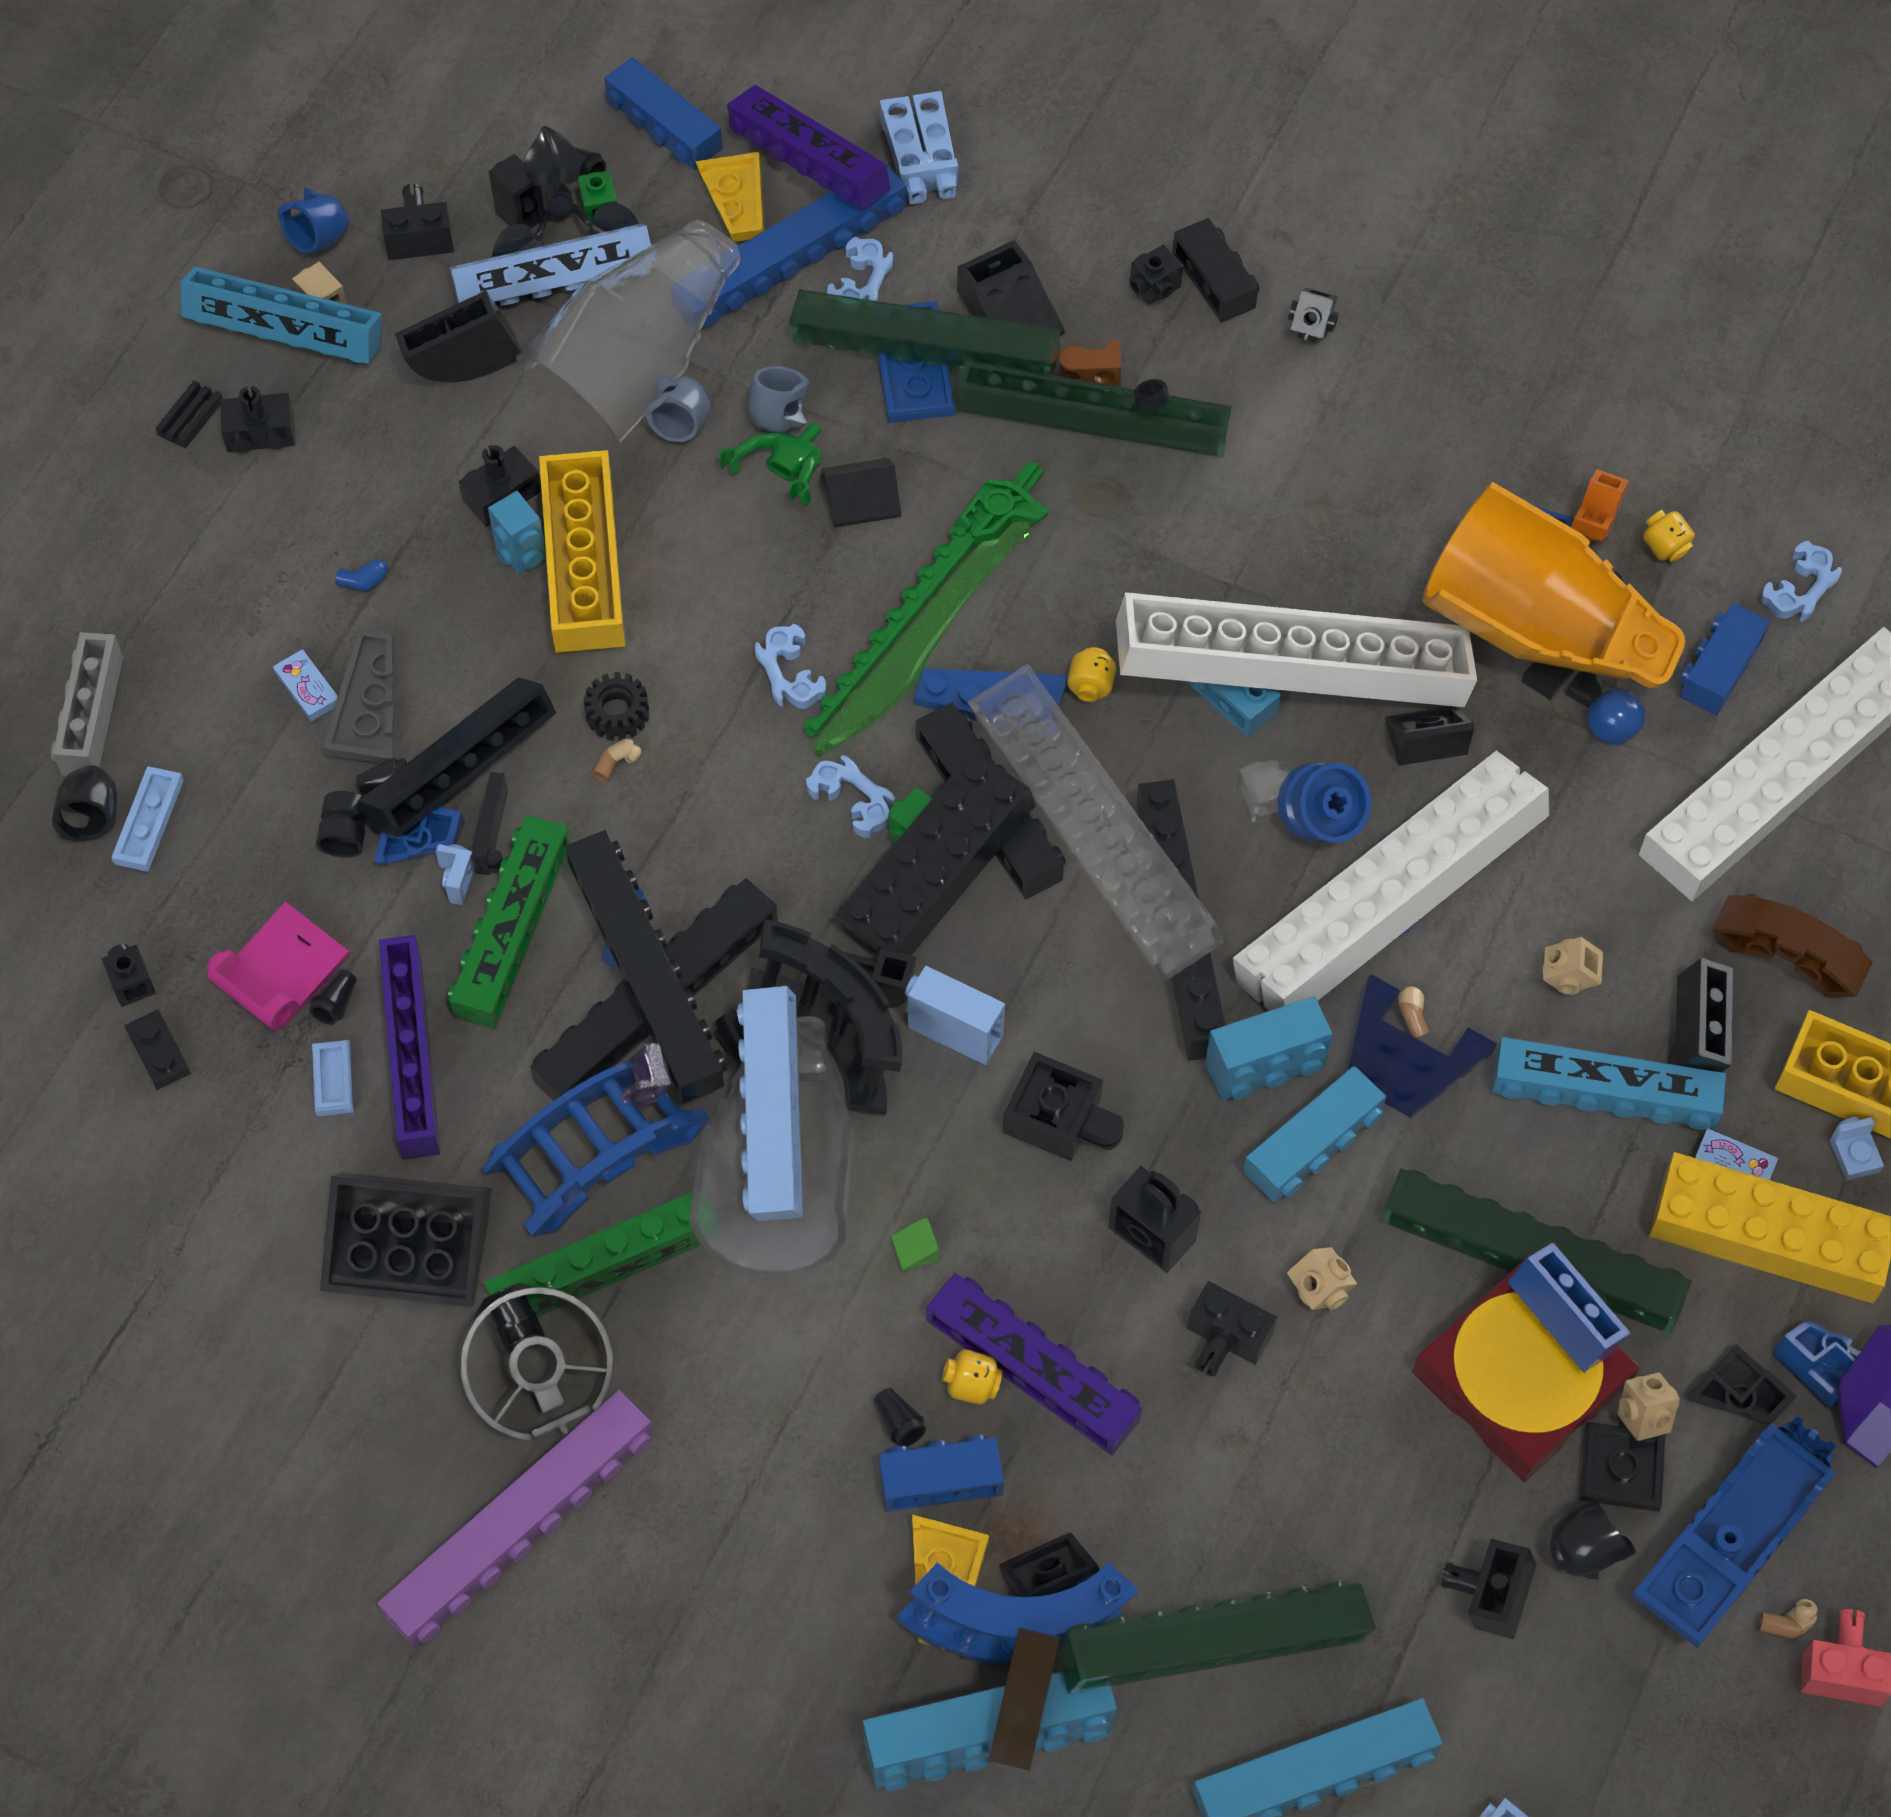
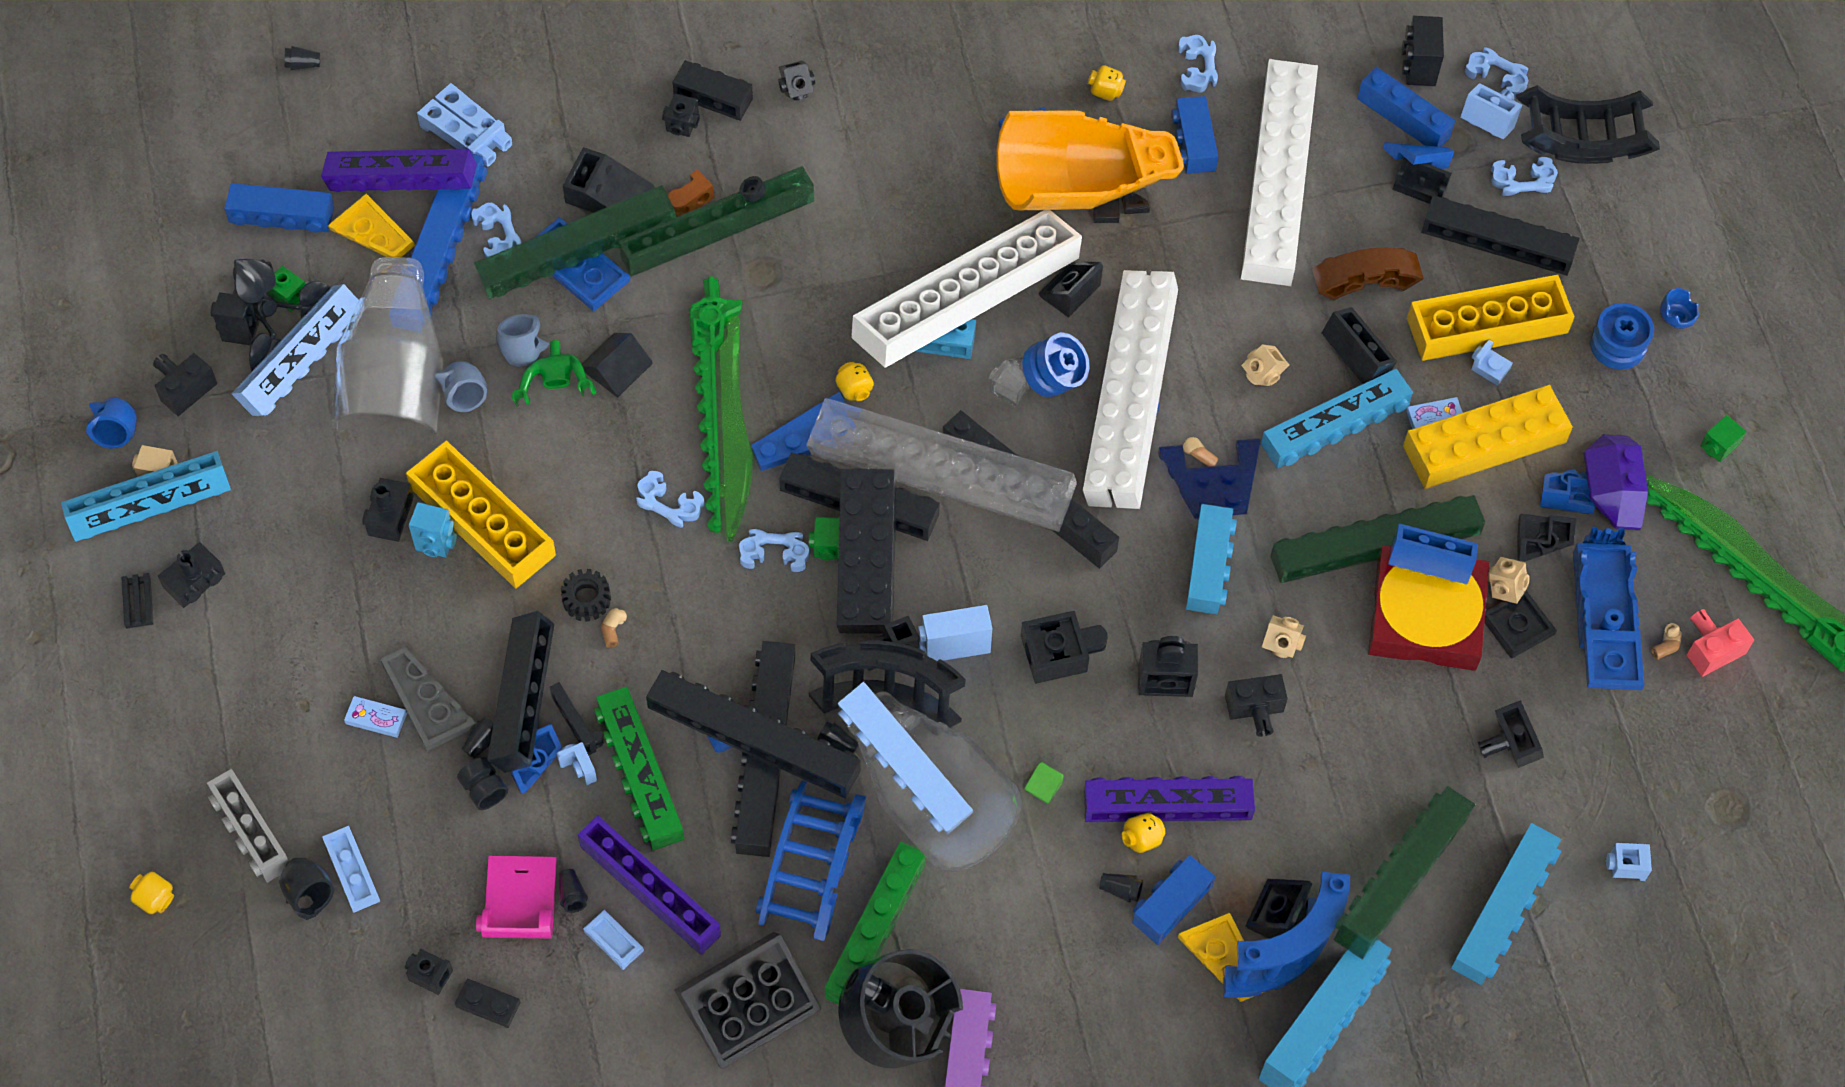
camera: 40 degrees left, 0 degrees up
(365, 577) = (352, 624): blue arm -> none
(460, 342) = (287, 434): black brick -> none
(650, 1076) = (817, 795): clear purple bracket -> none
(1024, 1699) = (1345, 980): dark brown slope -> none
(1268, 1049) = (1146, 528): dark azure brick -> none
(1588, 1542) = (1540, 675): black piece -> none
(1600, 506) = (1055, 89): orange brick -> none
(1616, 716) = (1165, 207): blue hair -> none

